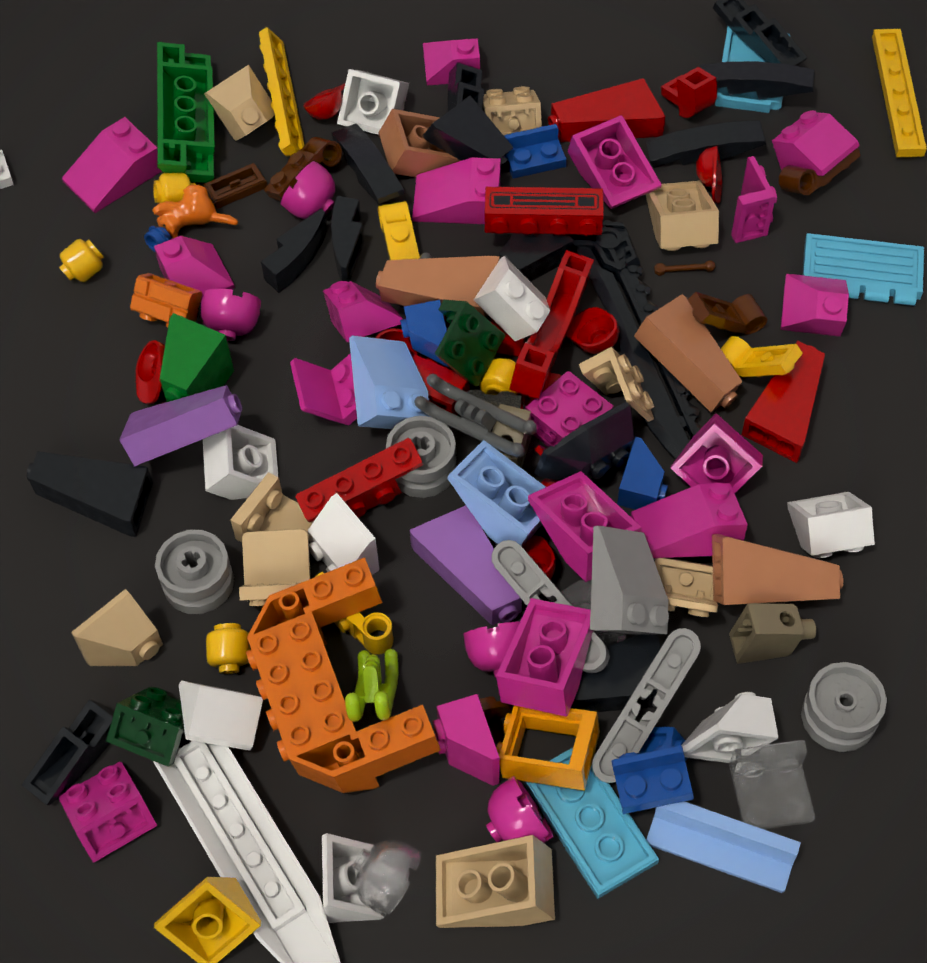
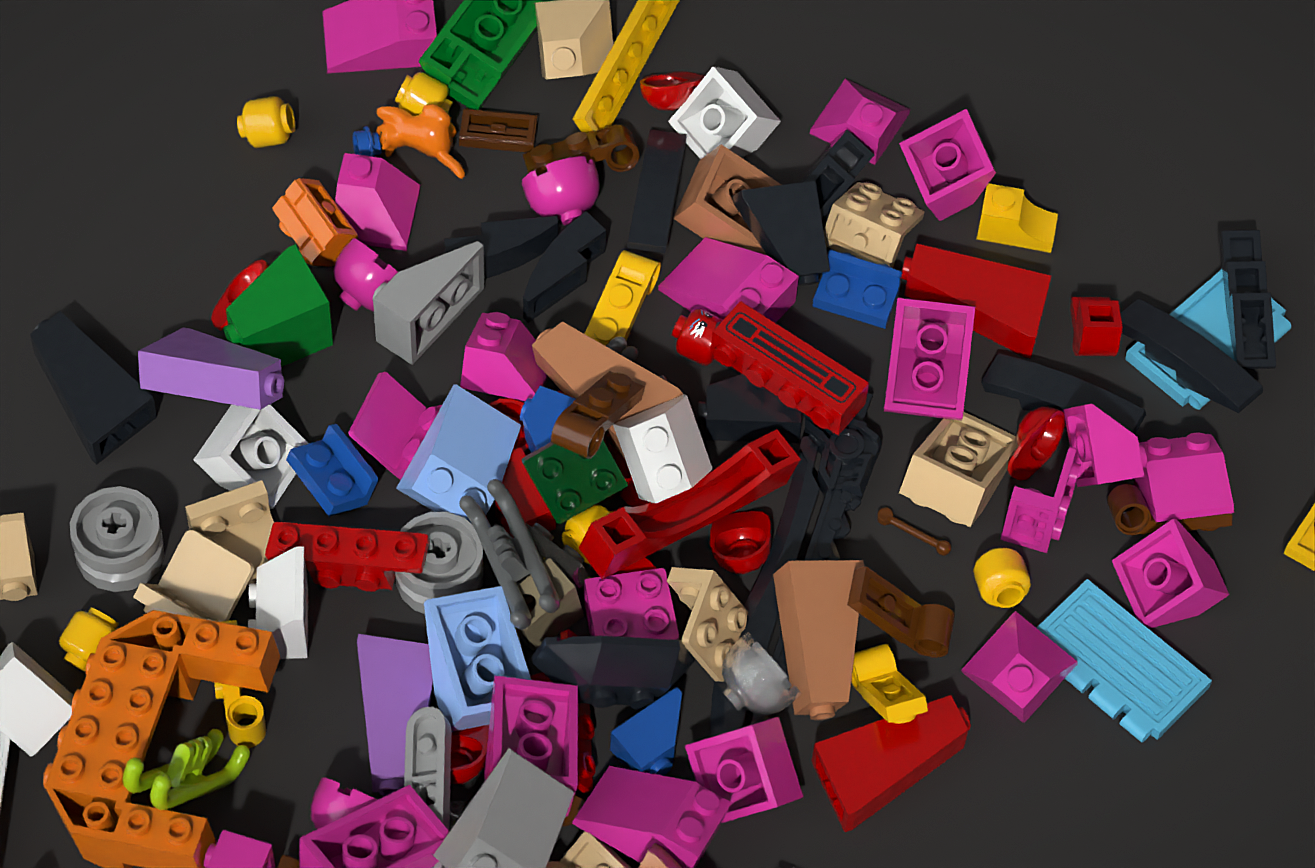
camera: 30 degrees right, 0 degrees up
(279, 305) = (426, 300): none -> light grey slope
(304, 442) = (334, 472): none -> blue bracket
(464, 296) = (584, 422): none -> reddish brown plate
(466, 229) = (695, 336): none -> red head
(533, 49) = (949, 164): none -> dark pink slope
(589, 65) = (1014, 220): none -> yellow arch
(683, 398) = (756, 679): none -> clear cylinder
(761, 260) = (1002, 577): none -> yellow head
(767, 143) = (1103, 447): none -> dark pink slope
(850, 204) = (1169, 577): none -> dark pink slope

